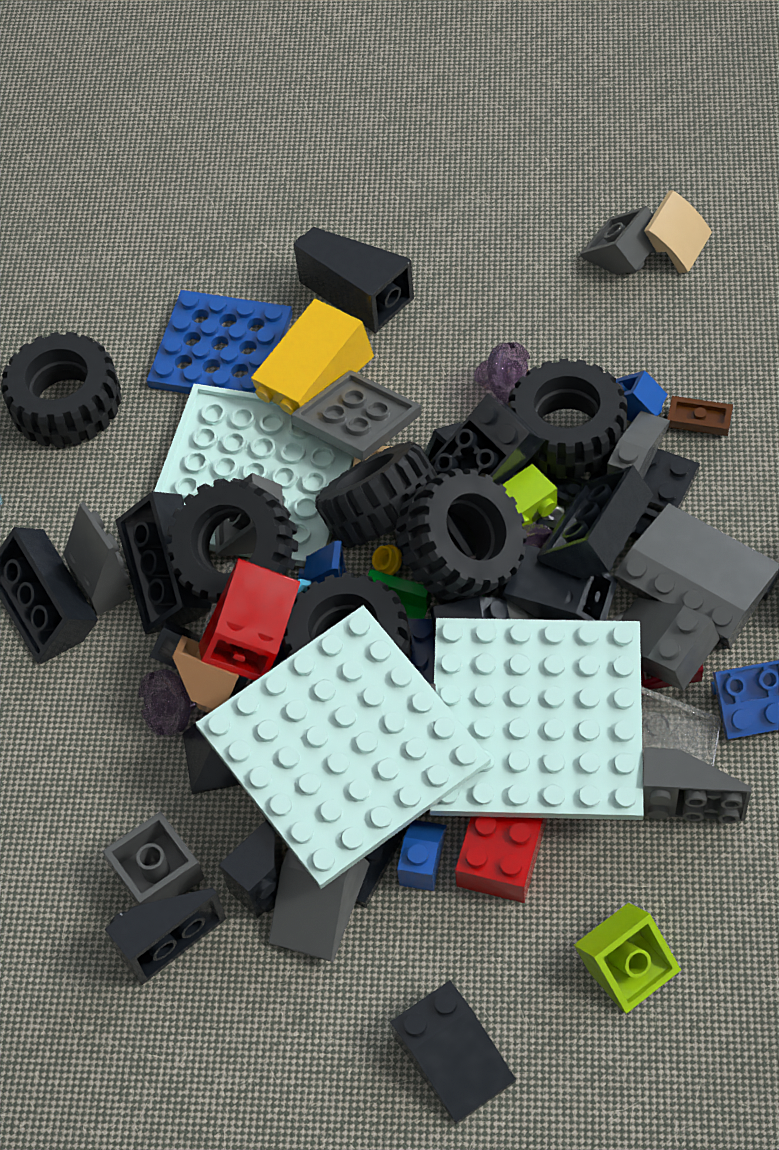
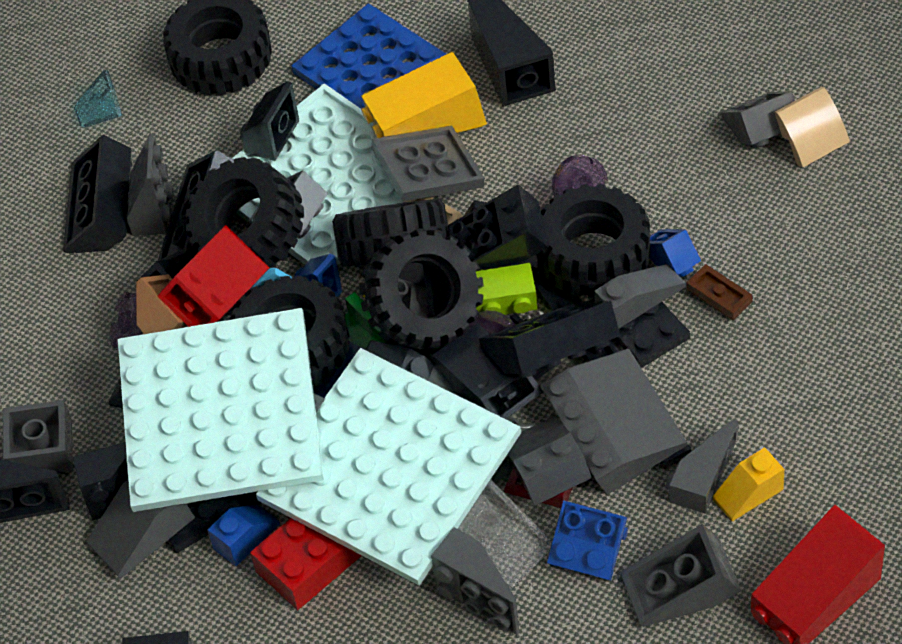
camera: 30 degrees right, 5 degrees down
(174, 442) = (271, 123): none -> black slope

